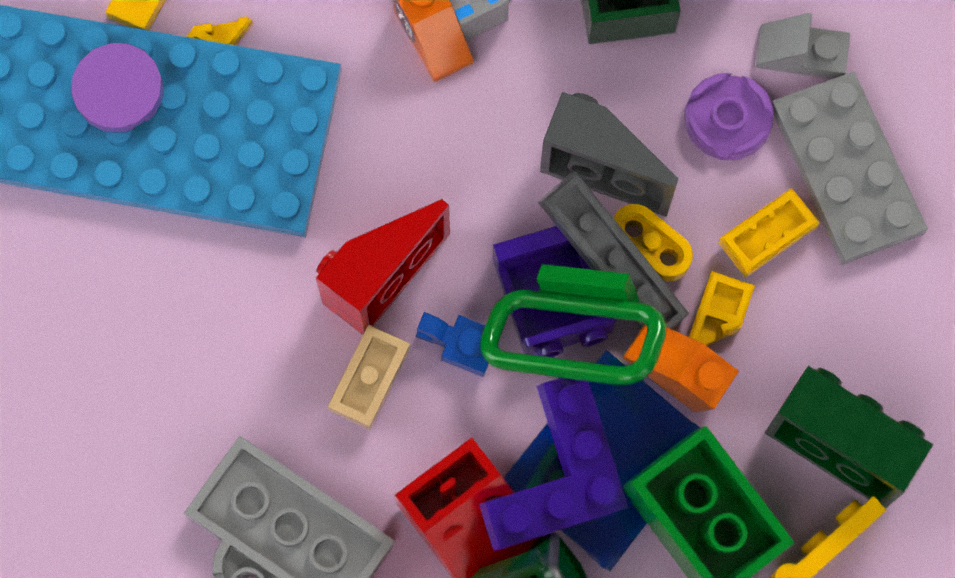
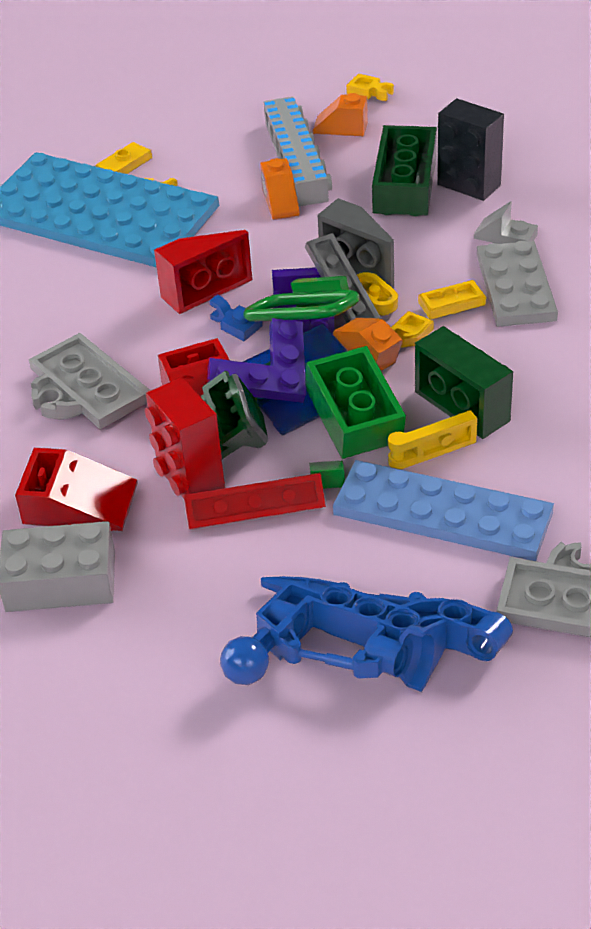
camera: 20 degrees right, 30 degrees down
(117, 87) = (84, 183): medium lavender tile -> none
(369, 377) = (171, 324): tan plate -> none
(726, 131) = (447, 253): medium lavender tile -> none

